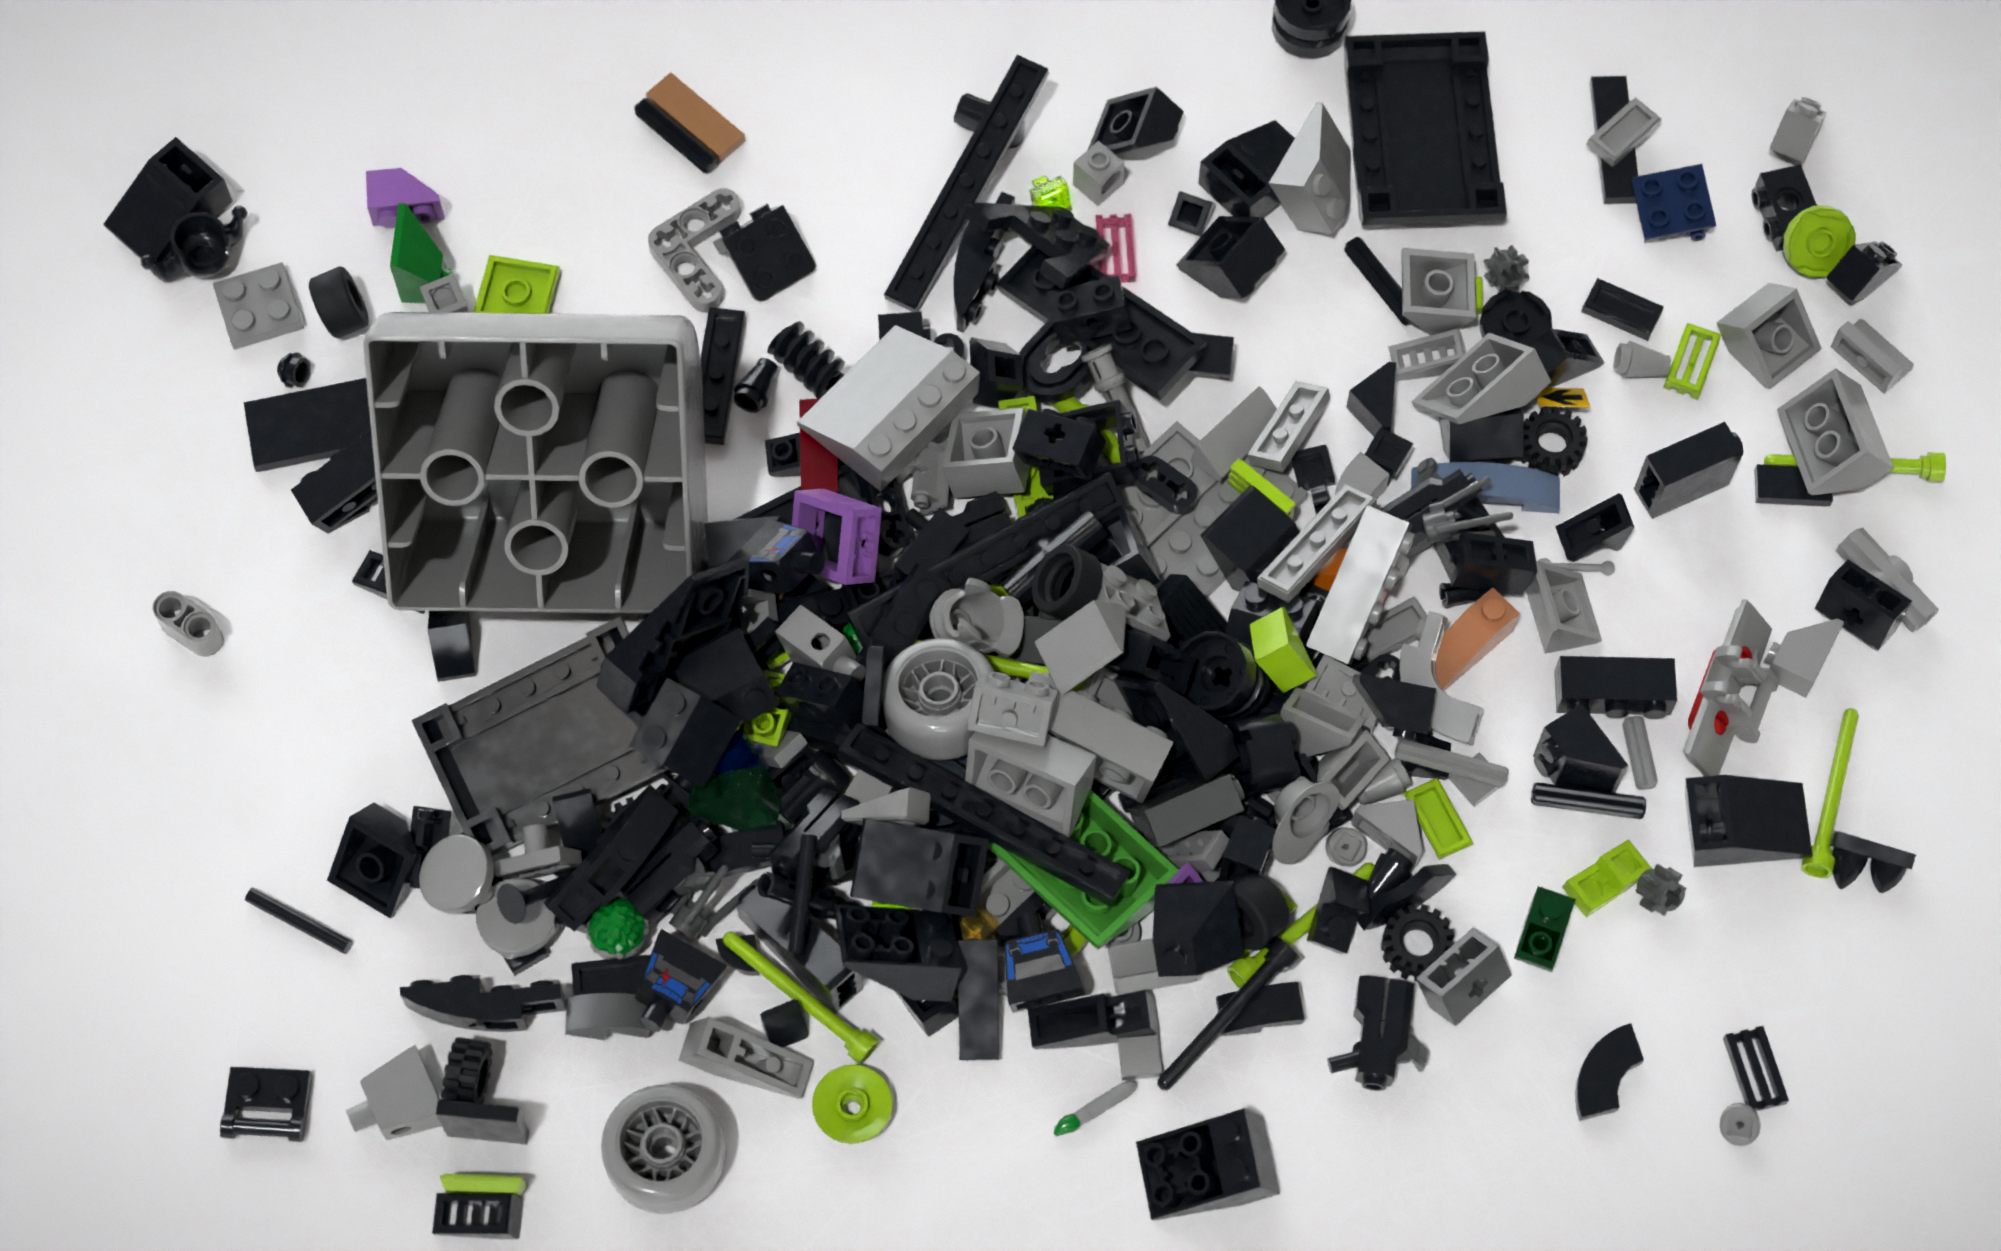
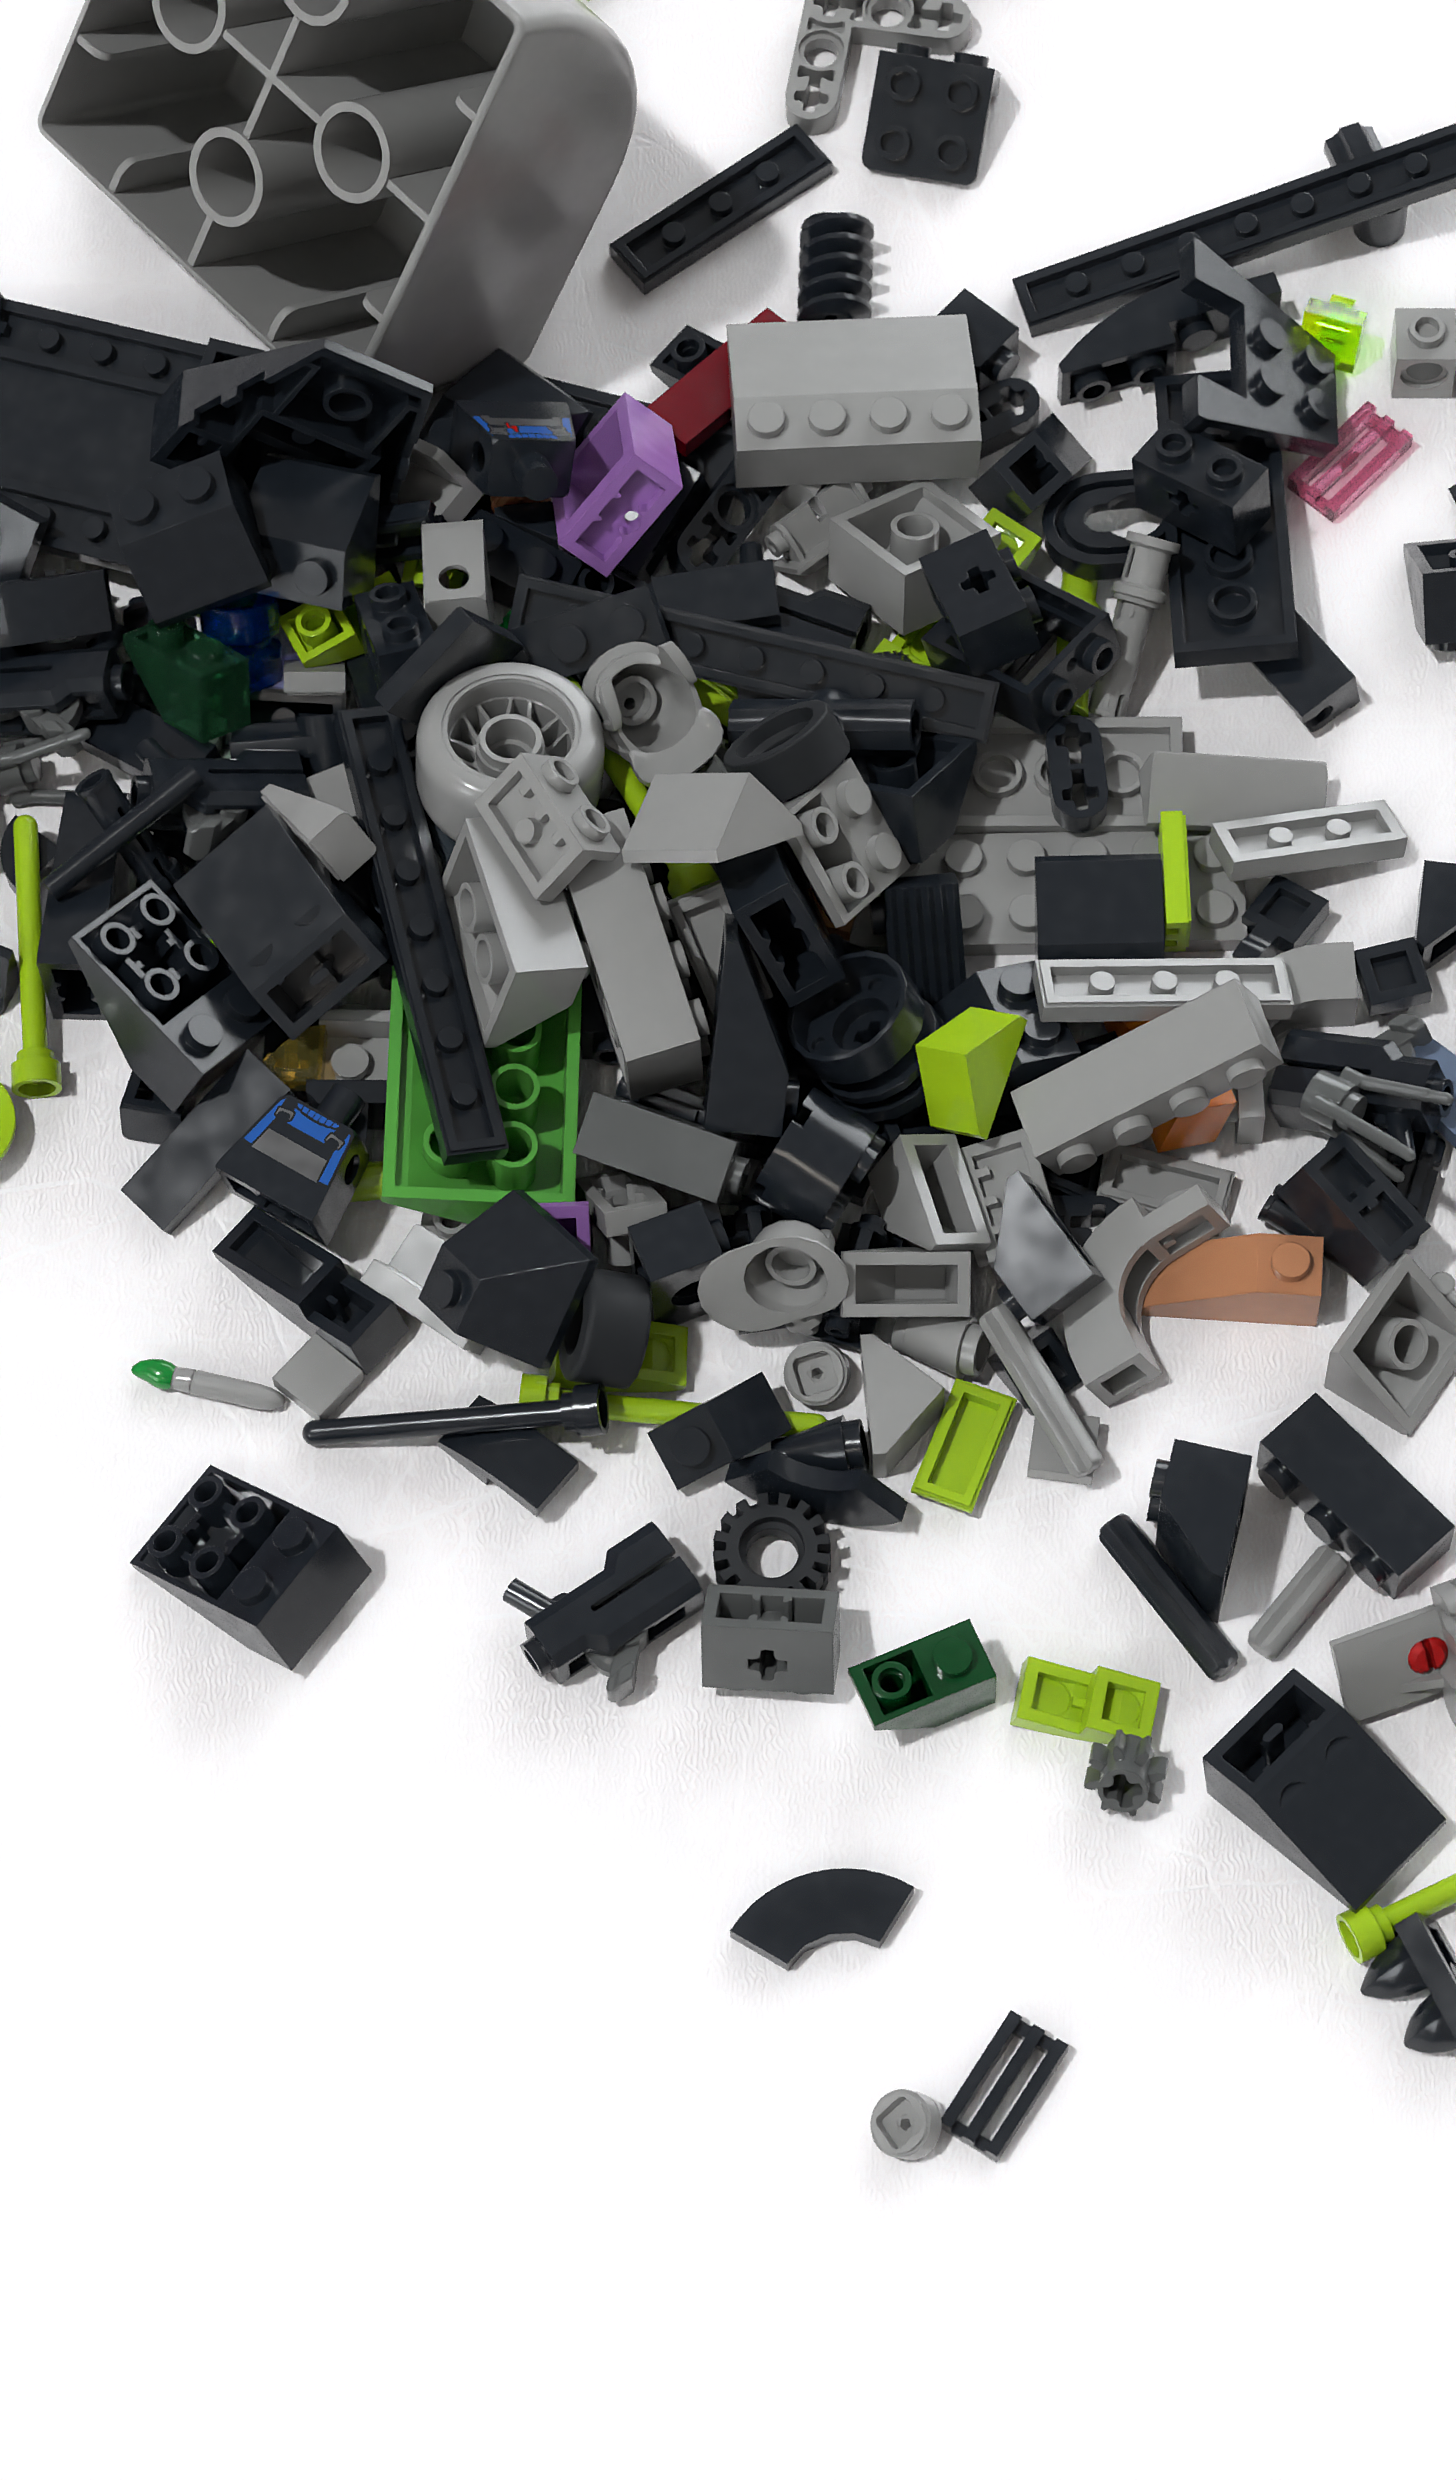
camera: 50 degrees right, 0 degrees up
(451, 644) = (99, 250): black slope -> none
(755, 388) = (747, 255): black cone -> none

